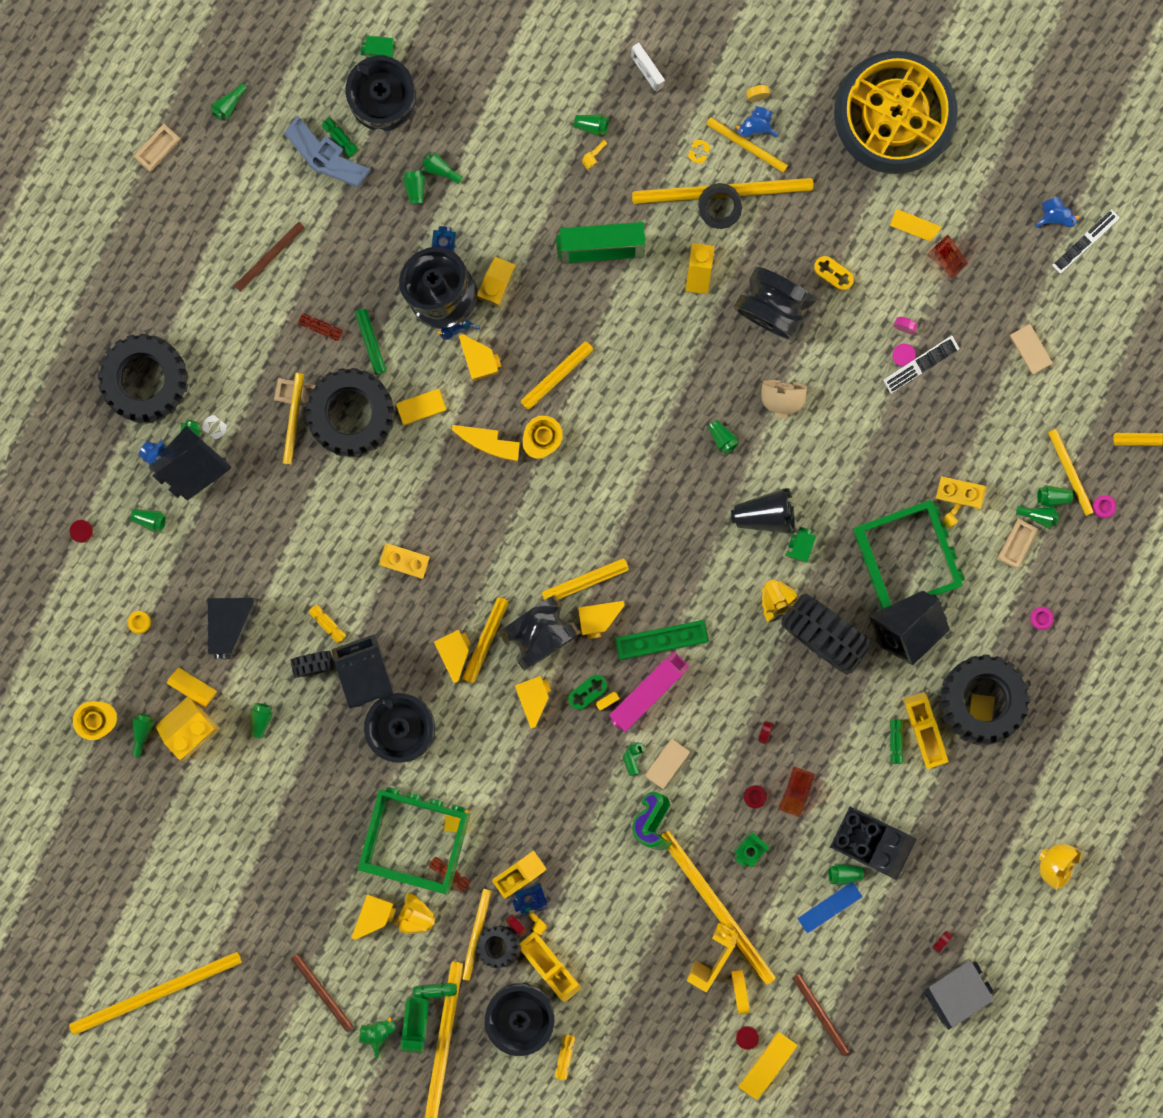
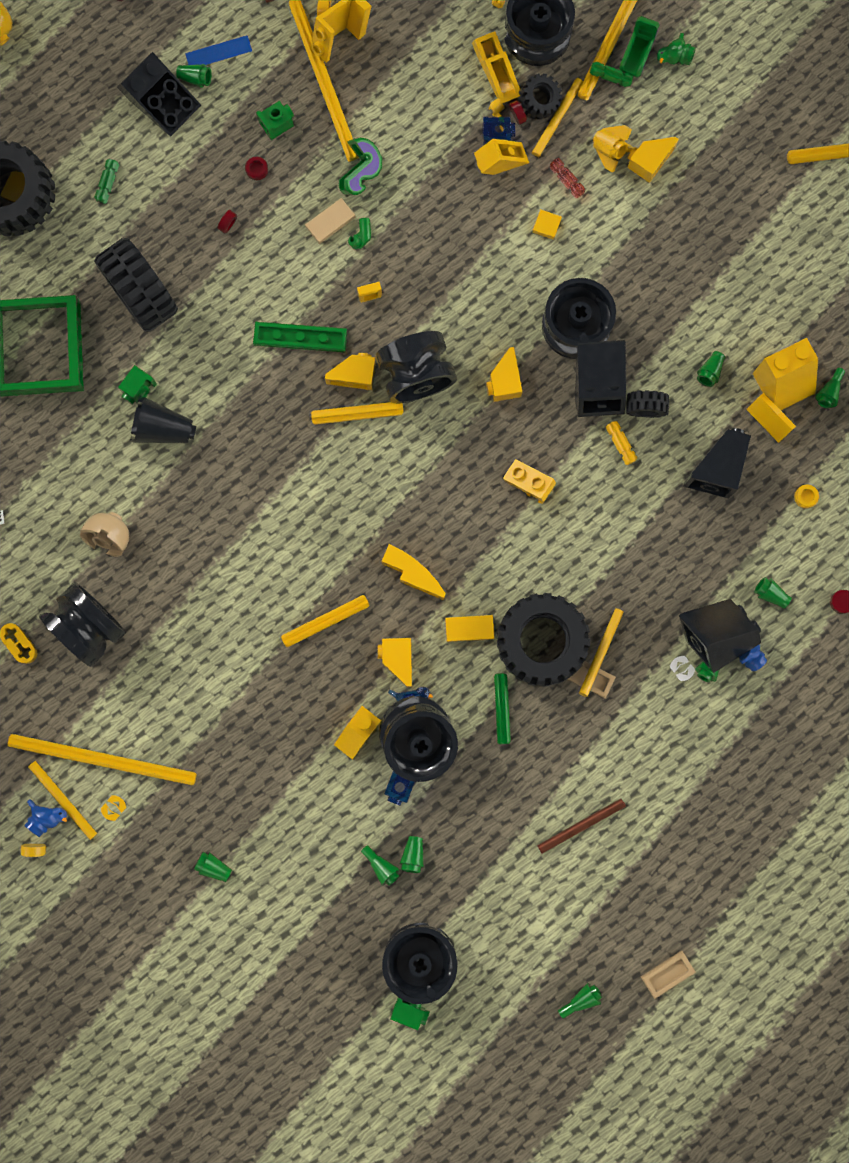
camera: 170 degrees left, 5 degrees down
(120, 356) = (776, 730): black tyre -> none
(320, 327) = (549, 738): clear red axle -> none
(322, 993) = (717, 104): copper bar -> none
(324, 155) = (496, 915): sand blue plate -> none
(340, 137) = (475, 930): green axle -> none
(412, 799) = (613, 183): green window -> none
(485, 640) = (470, 384): yellow axle -> none
(533, 698) = (440, 313): yellow slope -> none
(542, 436) = (357, 561): yellow piece -> none
(588, 159) = (226, 831): yellow hand -> none
(591, 696) = (384, 302): green beam -> none
(601, 242) = (235, 733): green window -> none
(647, 67) = (135, 909): white tile -> none
(649, 691) = (324, 288): dark pink slope -> none
(699, 268) = (148, 686): yellow slope -> none
(724, 439) = (179, 511): green cone -> none
(725, 222) = (101, 727): black tyre -> none
(777, 599) = (175, 341): yellow brick -> none
(796, 791) = (214, 161): clear red slope -> none
(911, 626) = (54, 275): black slope -> none
(925, 730) = (75, 183): yellow slope -> none

